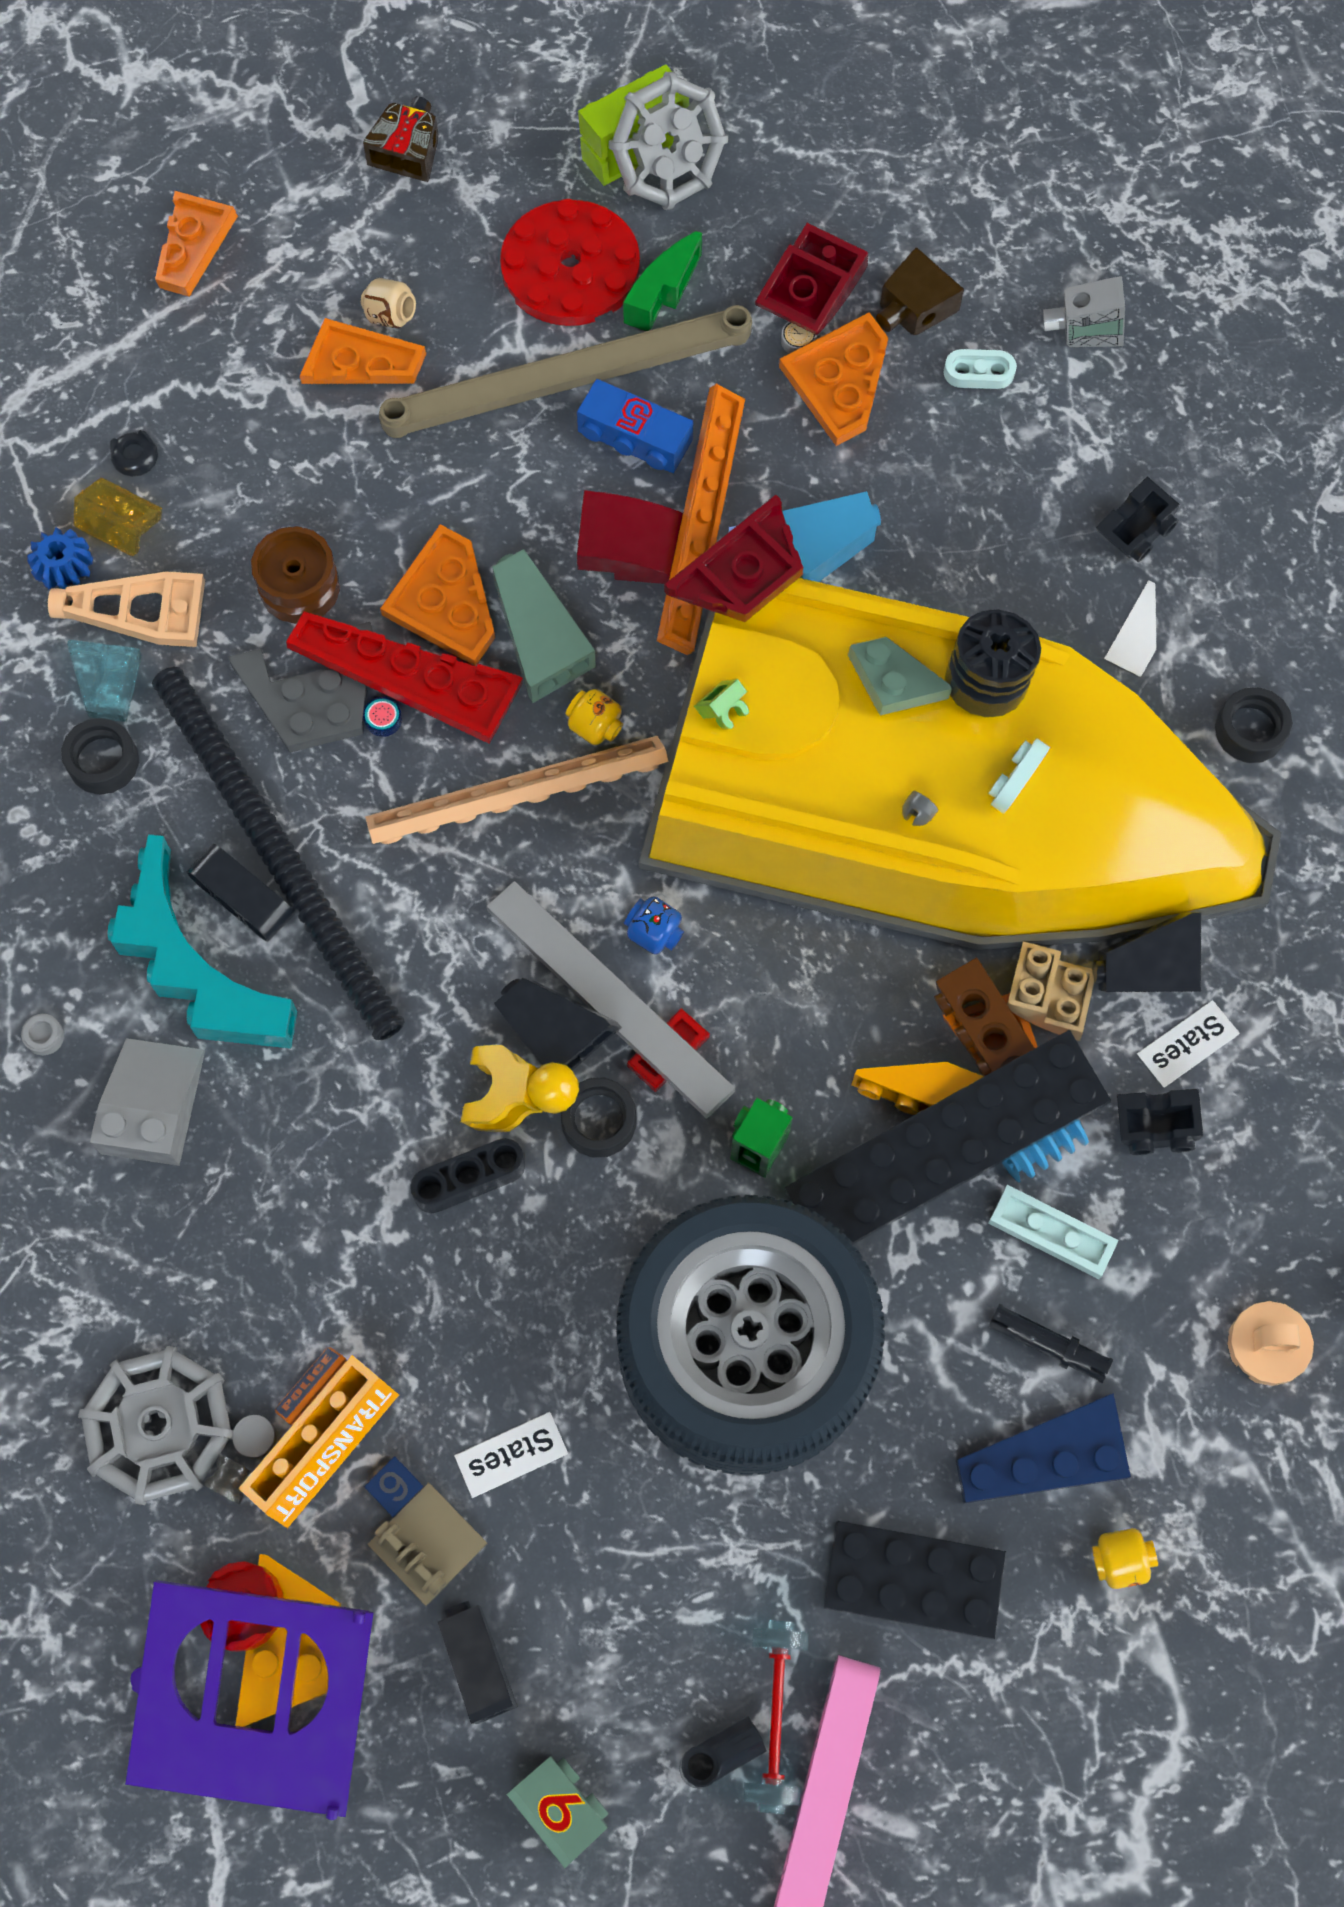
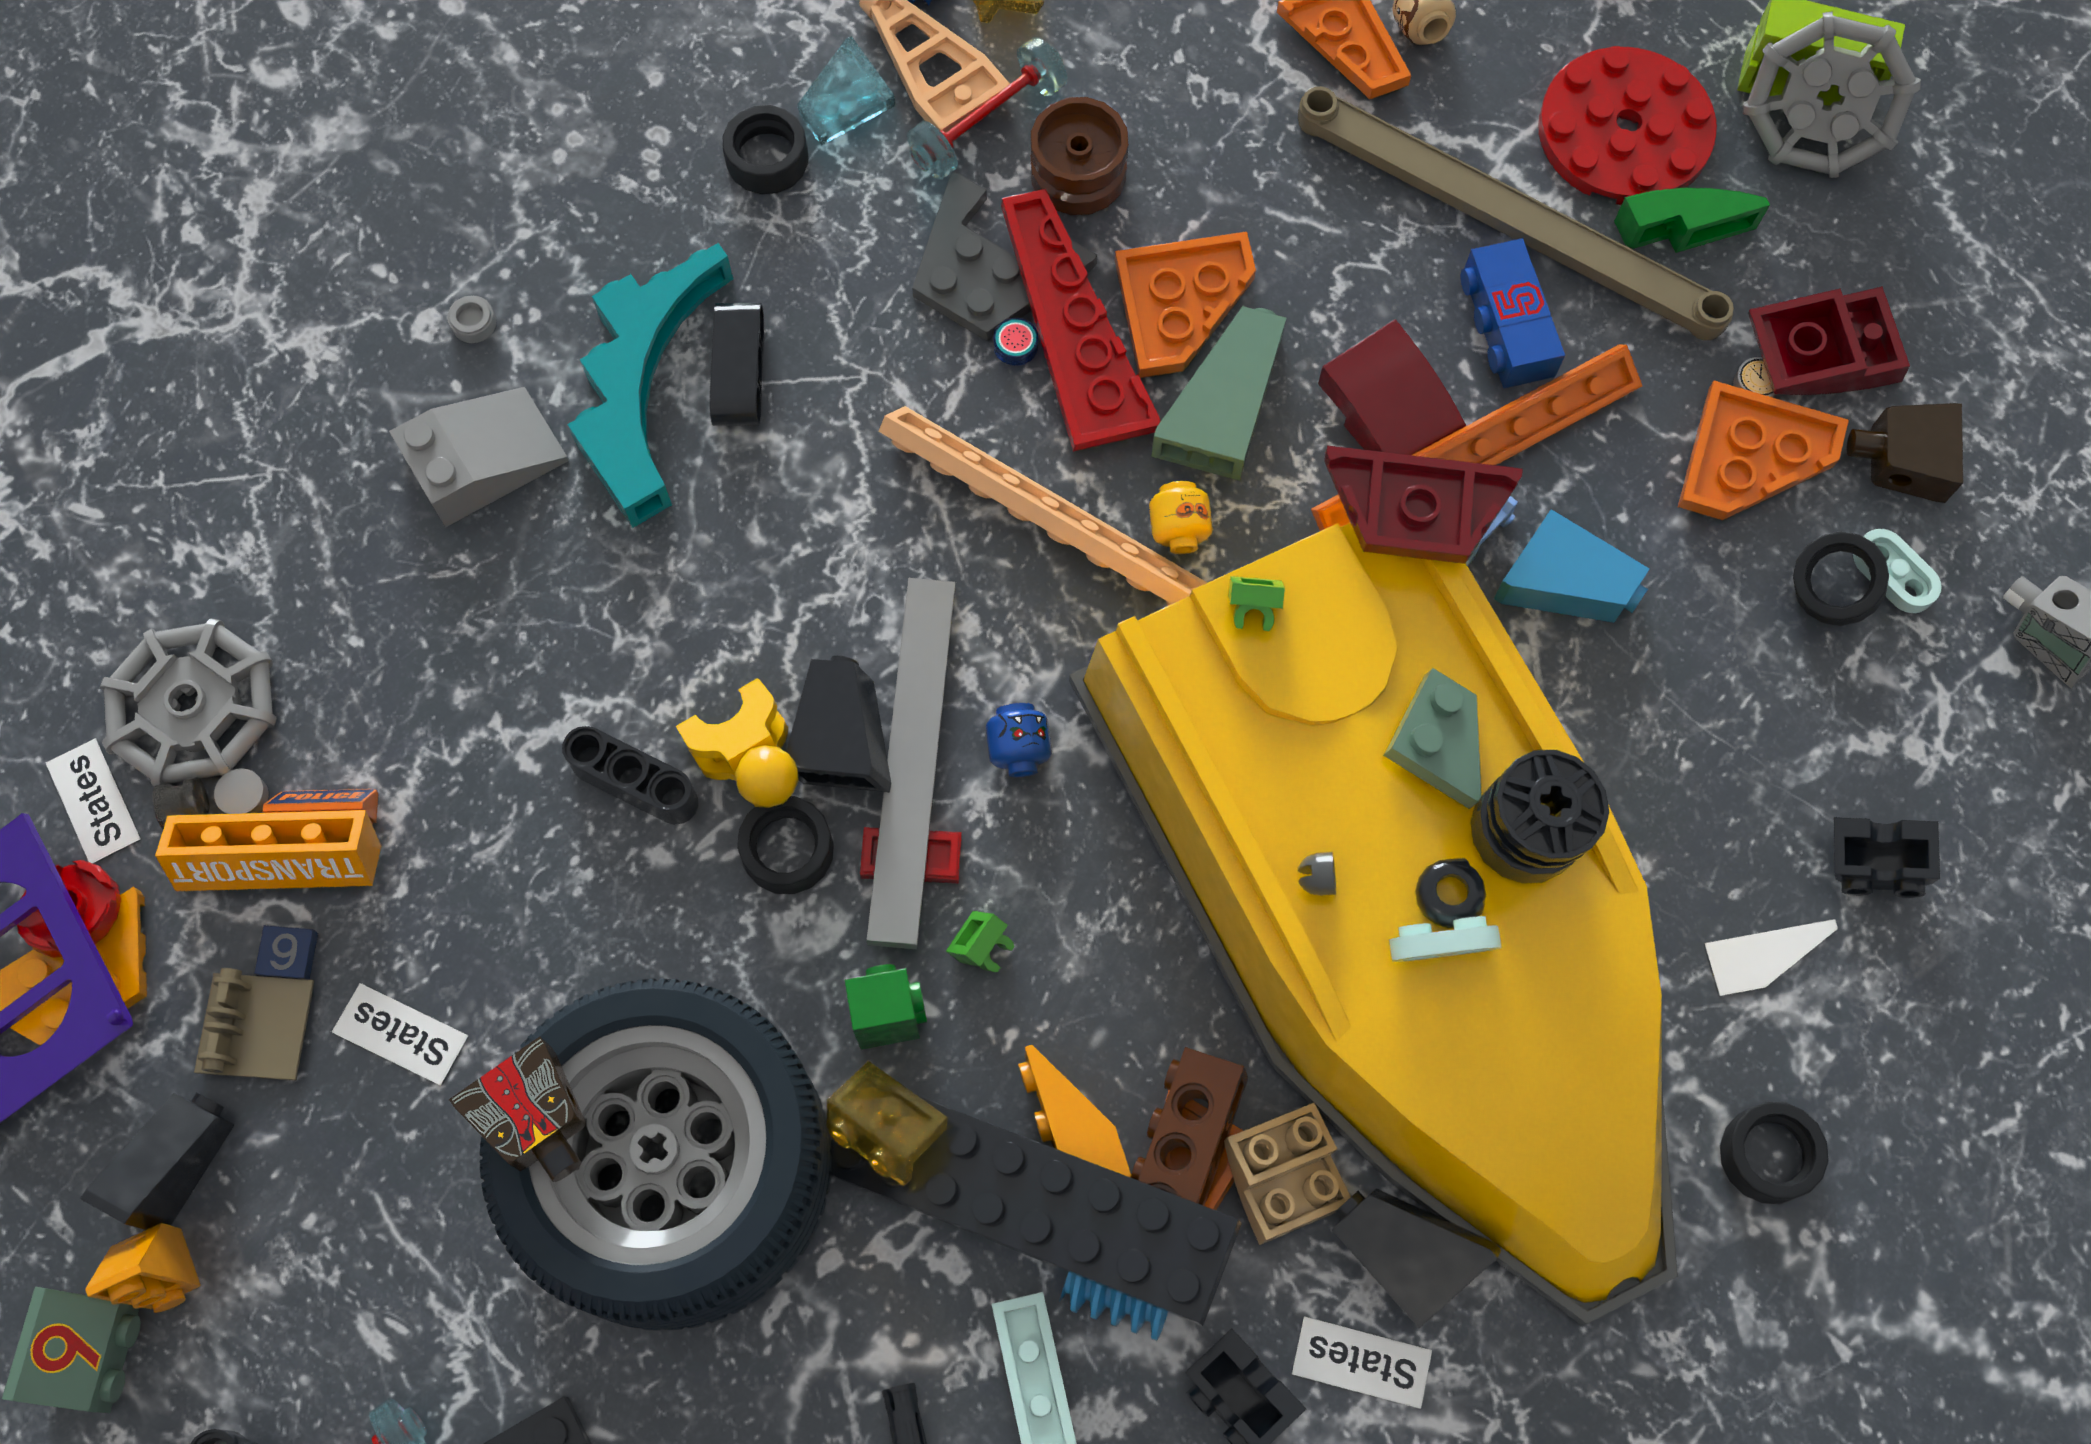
camera: 50 degrees right, 0 degrees up
(167, 1542) = (92, 801): none -> white sticker
(205, 655) = (1040, 68): none -> clear light blue axle
(278, 853) = (800, 367): black piece -> none
(542, 1722) = (146, 1271): none -> light orange slope
(678, 1375) = (526, 1110): none -> torso
(760, 1051) = (977, 939): none -> bright green tile
(837, 1188) = (883, 1122): none -> clear yellow bracket
(953, 373) = (1834, 543): none -> black tyre
(983, 762) = (1440, 912): none -> black piece

